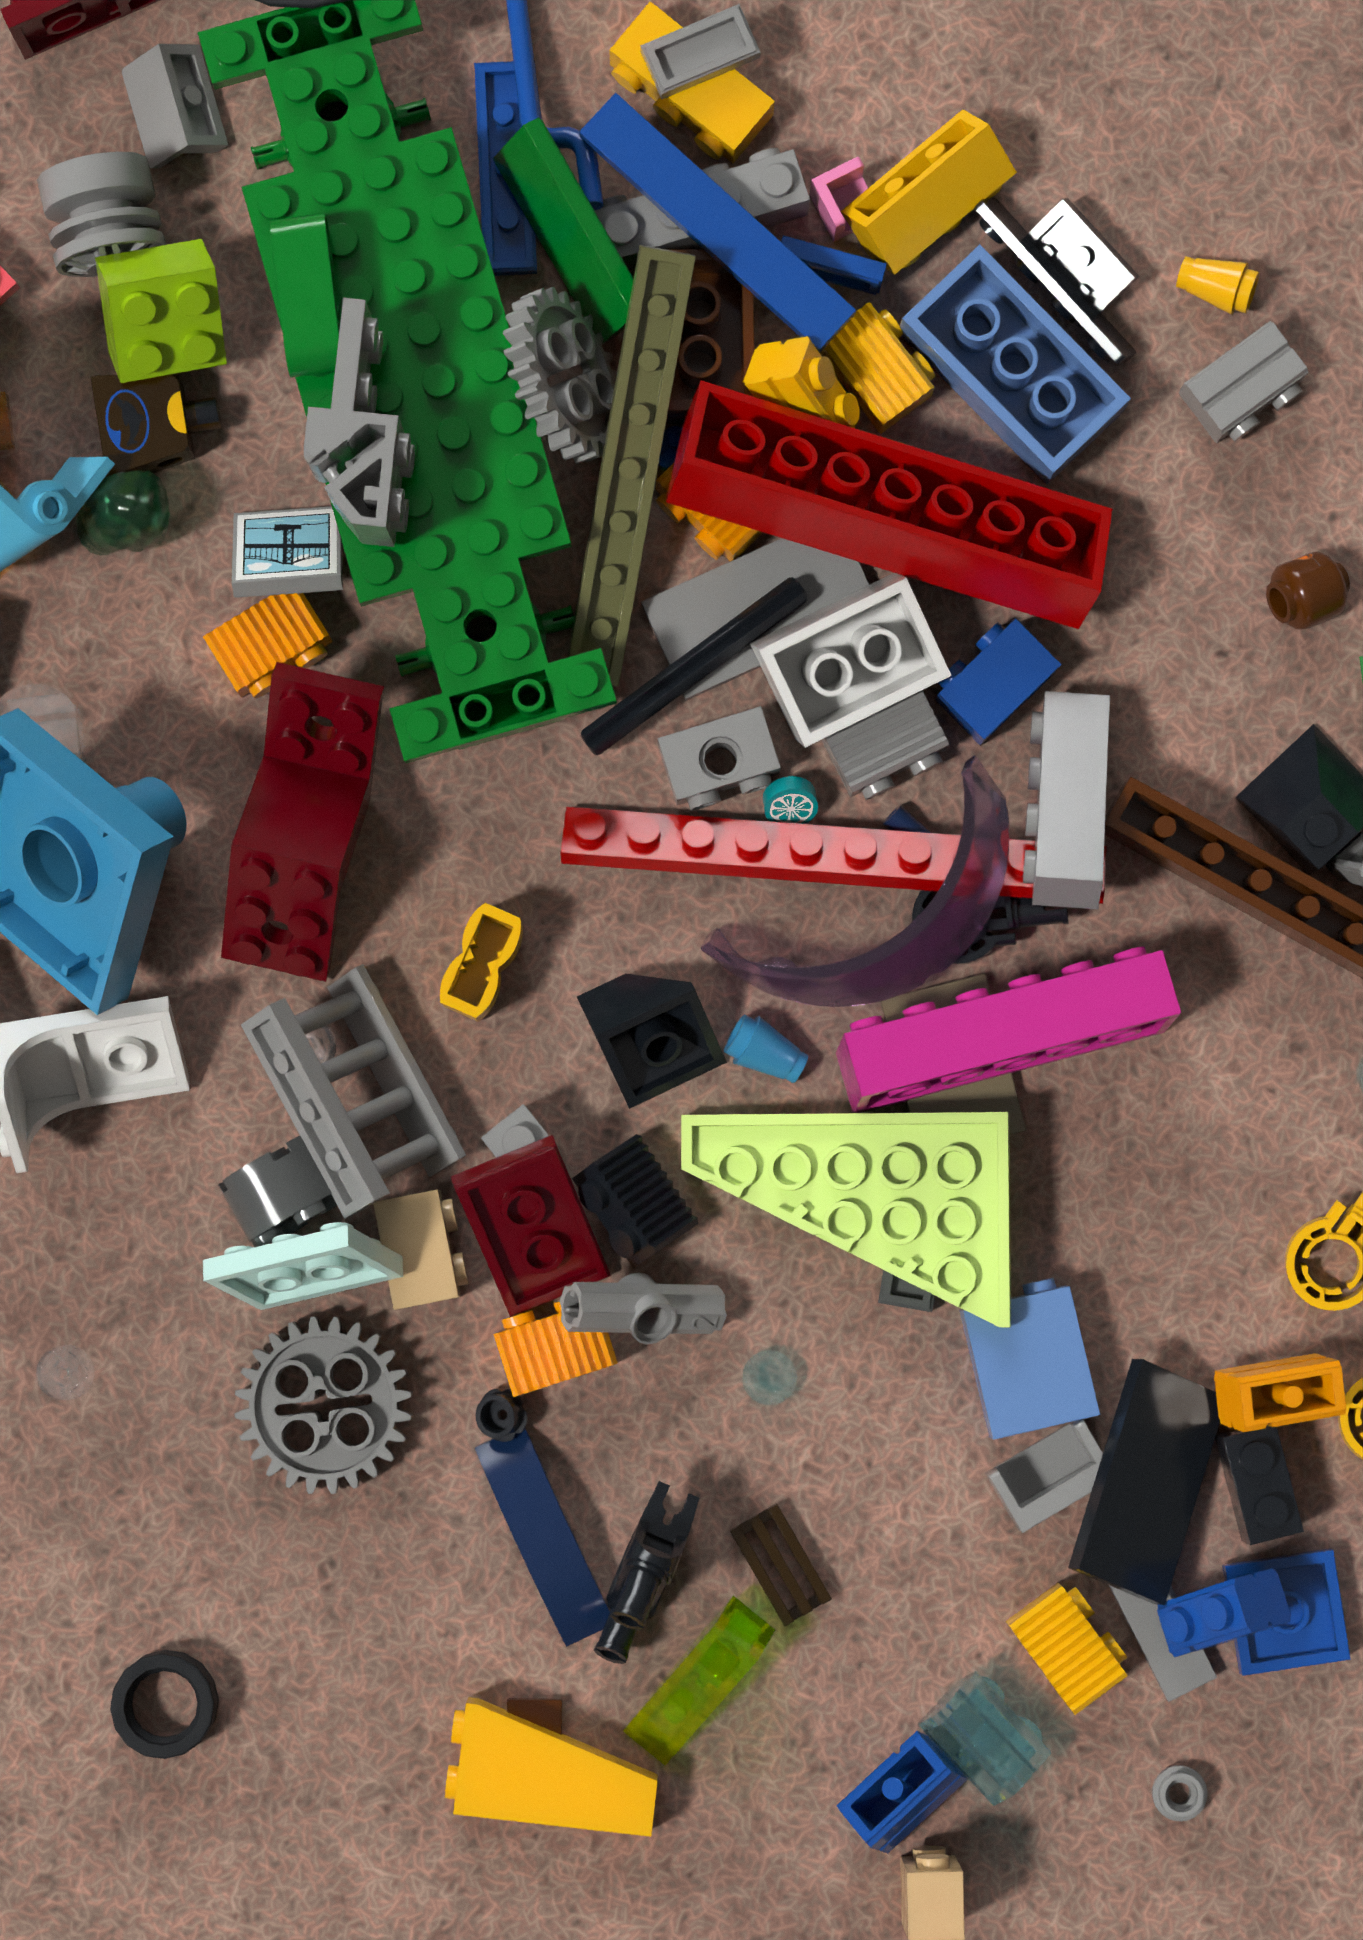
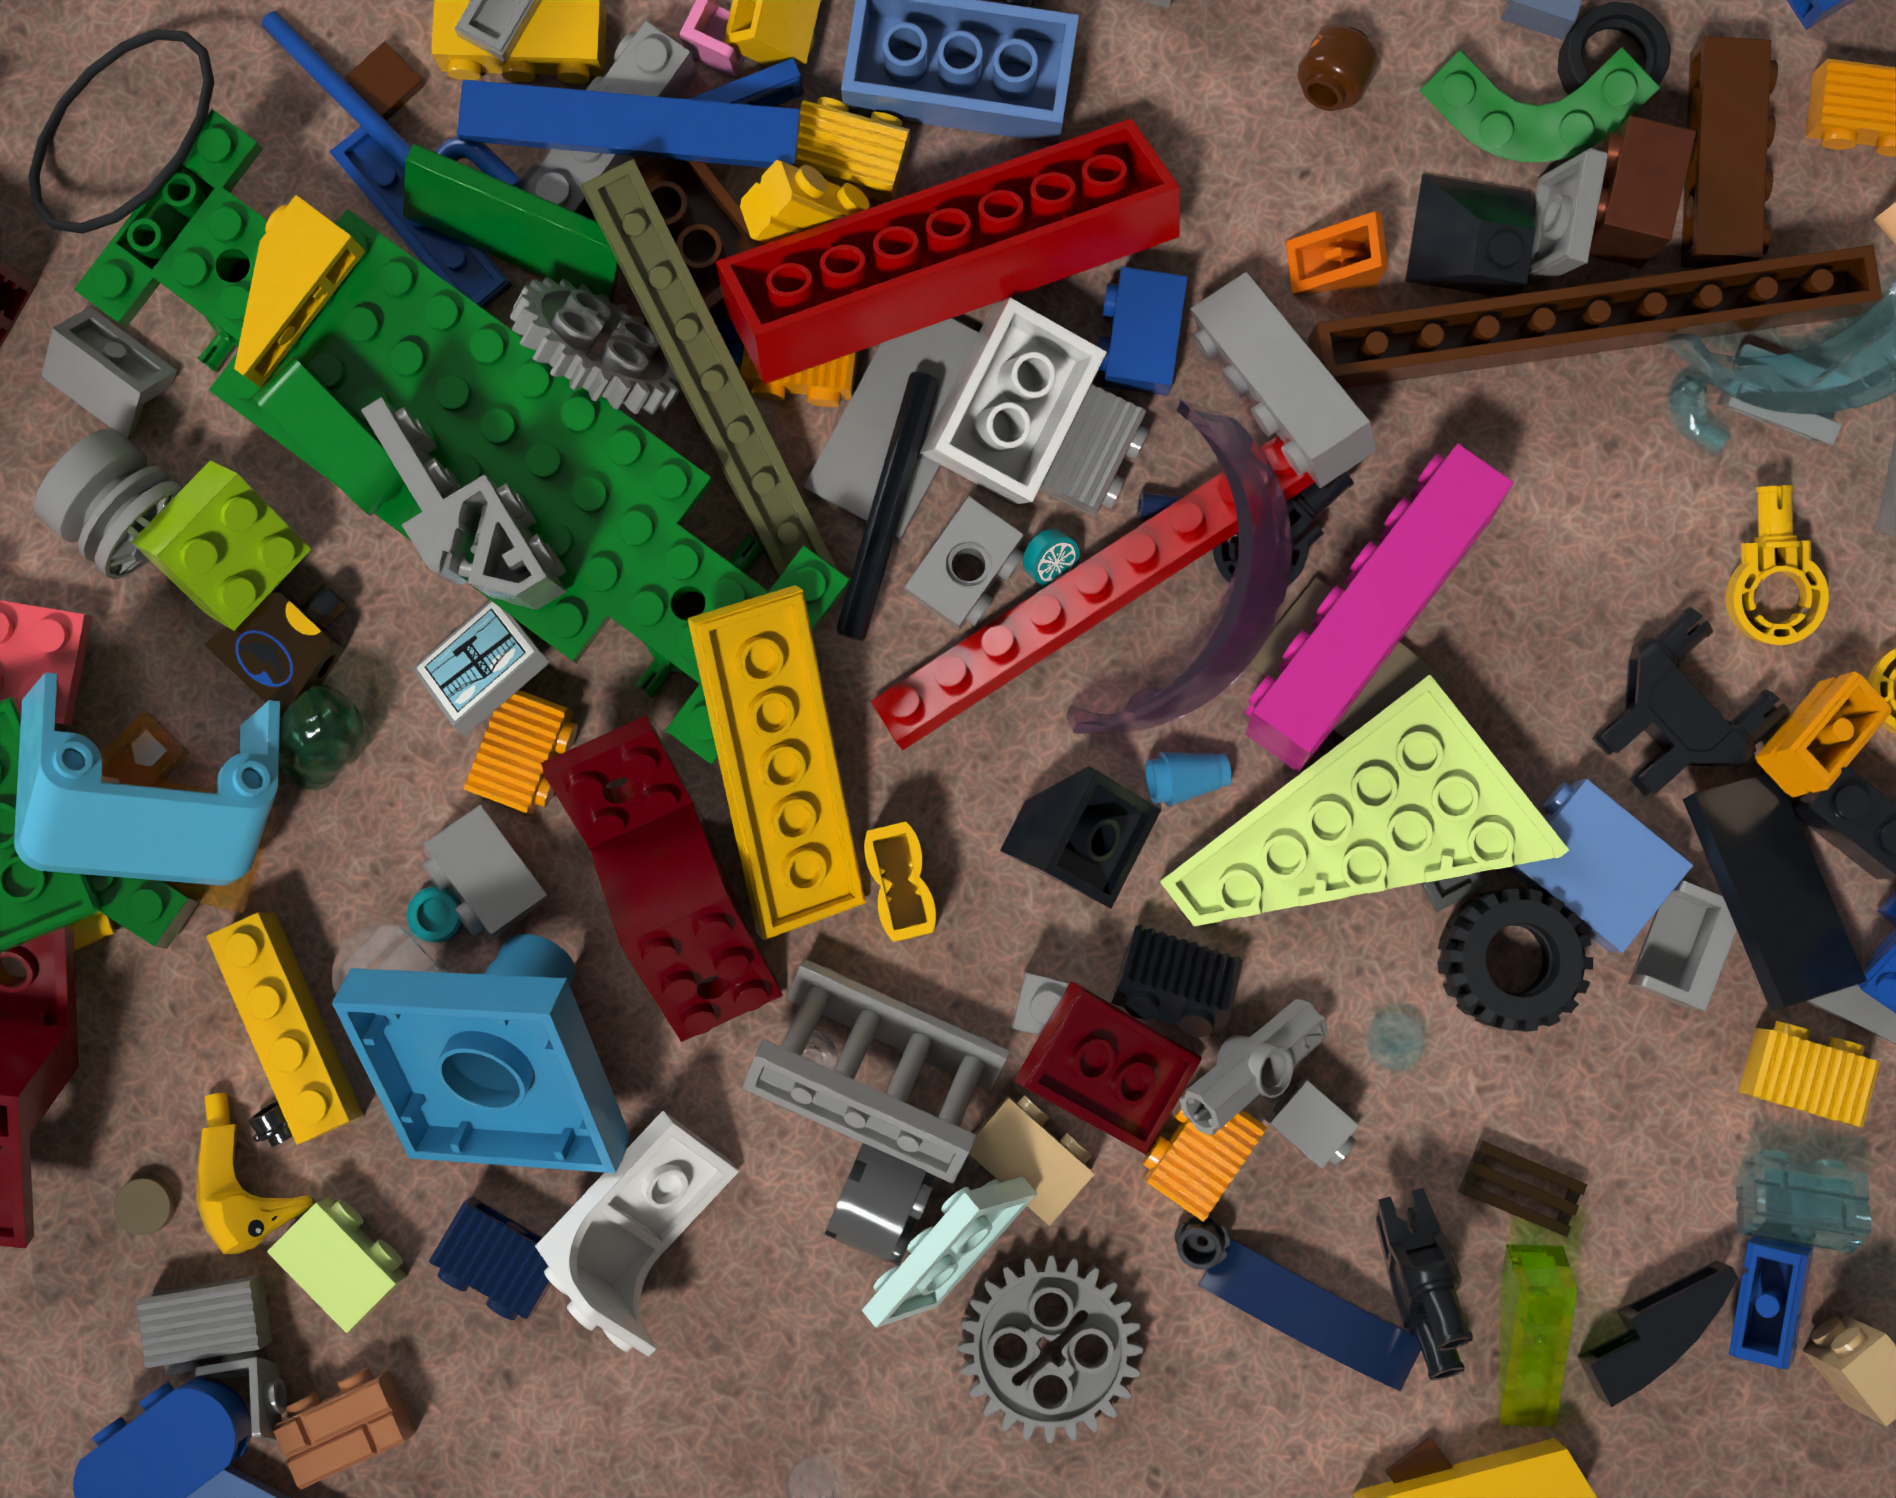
camera: 30 degrees left, 0 degrees up
(108, 716) = (433, 915): none -> teal tile
(167, 713) = (482, 874): none -> light grey brick
(370, 153) = (293, 278): none -> yellow slope
(456, 798) = (777, 760): none -> yellow tile
(559, 39) = (385, 80): none -> reddish brown tile
(655, 1391) = (1313, 1124): none -> light grey brick
(803, 1751) = (1657, 1332): none -> black slope
(955, 1393) = (1561, 967): none -> black tyre
(1183, 1295) = (1679, 715): none -> black connector
(1192, 737) = (1339, 256): none -> orange slope

